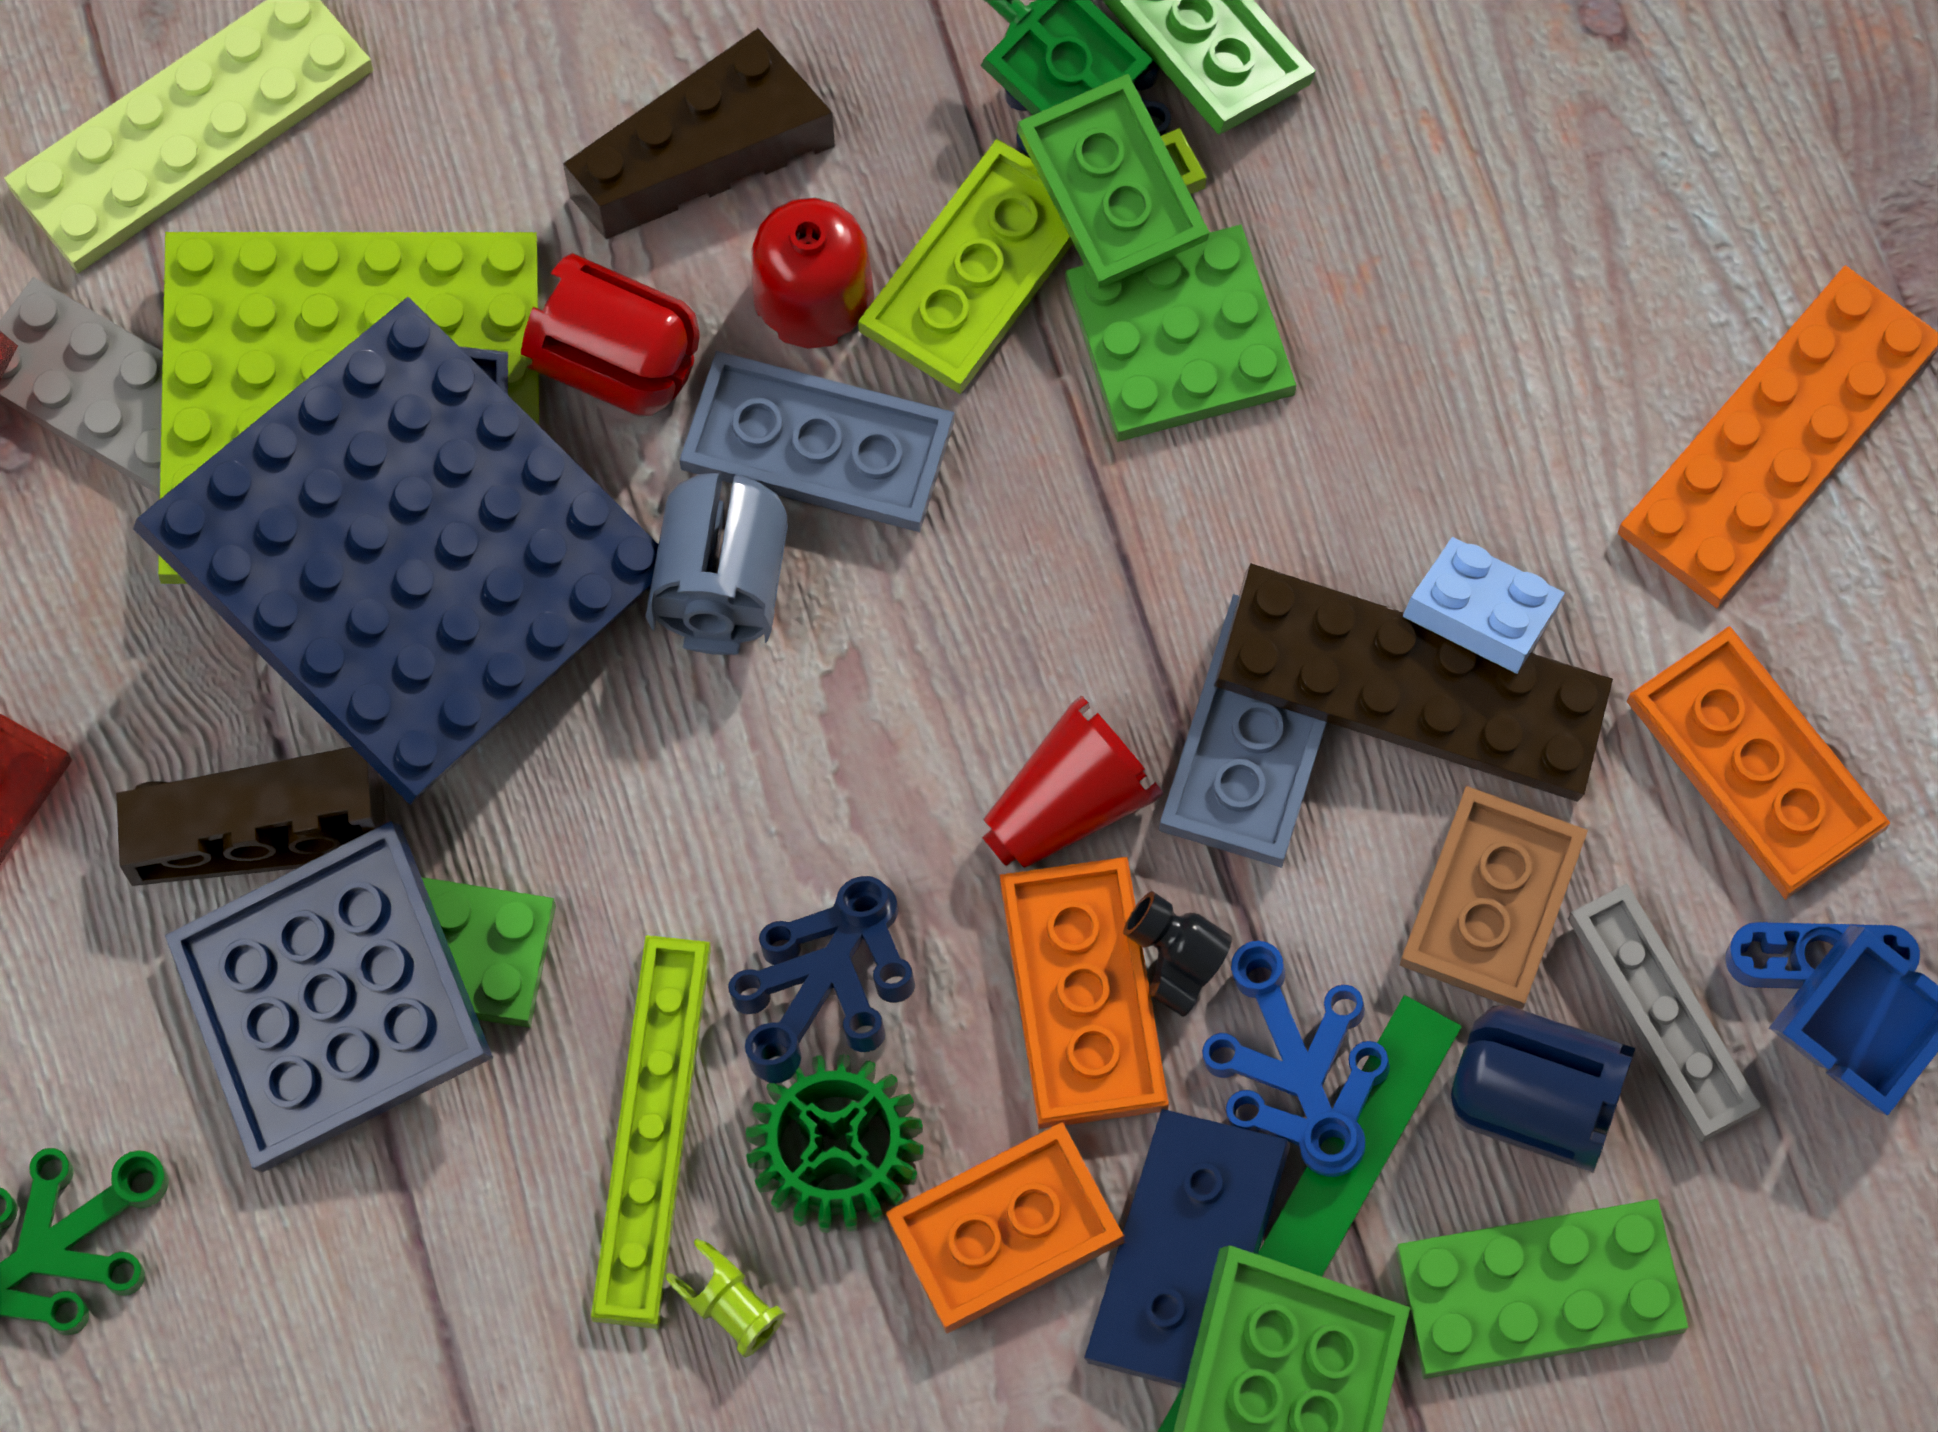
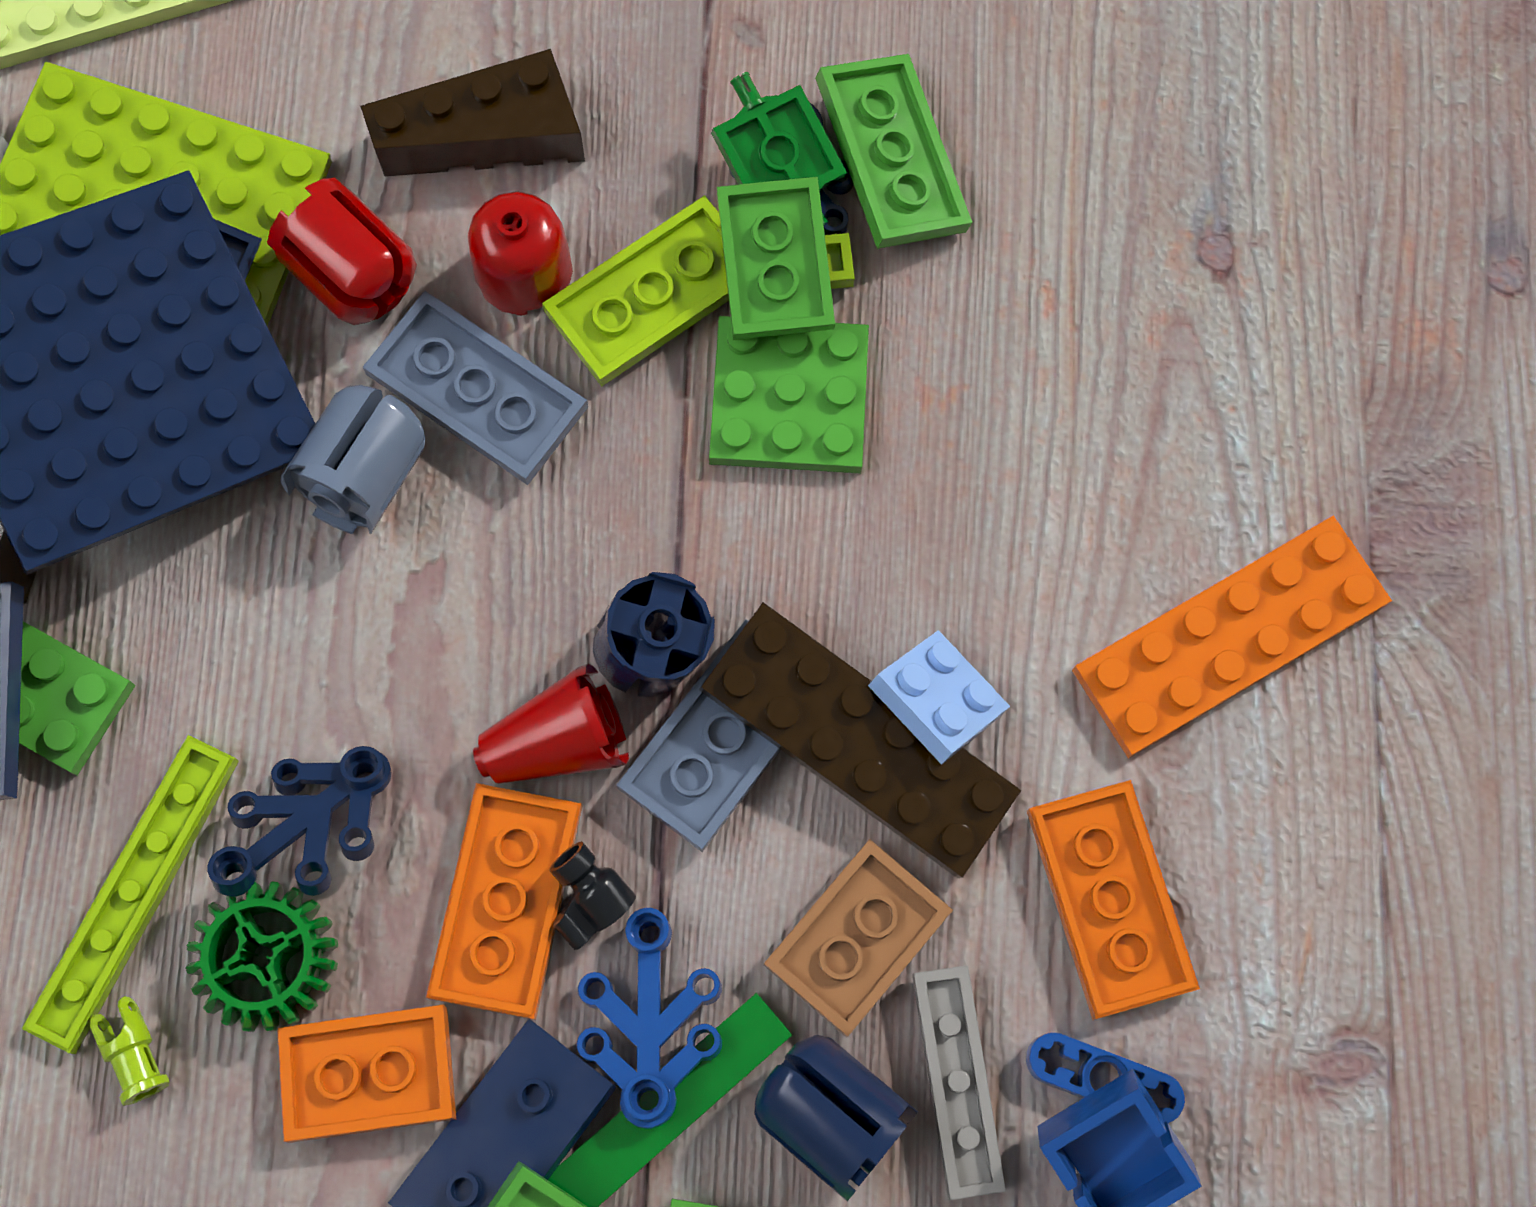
camera: 15 degrees right, 5 degrees up
(1142, 640) = (679, 636): none -> dark blue cylinder

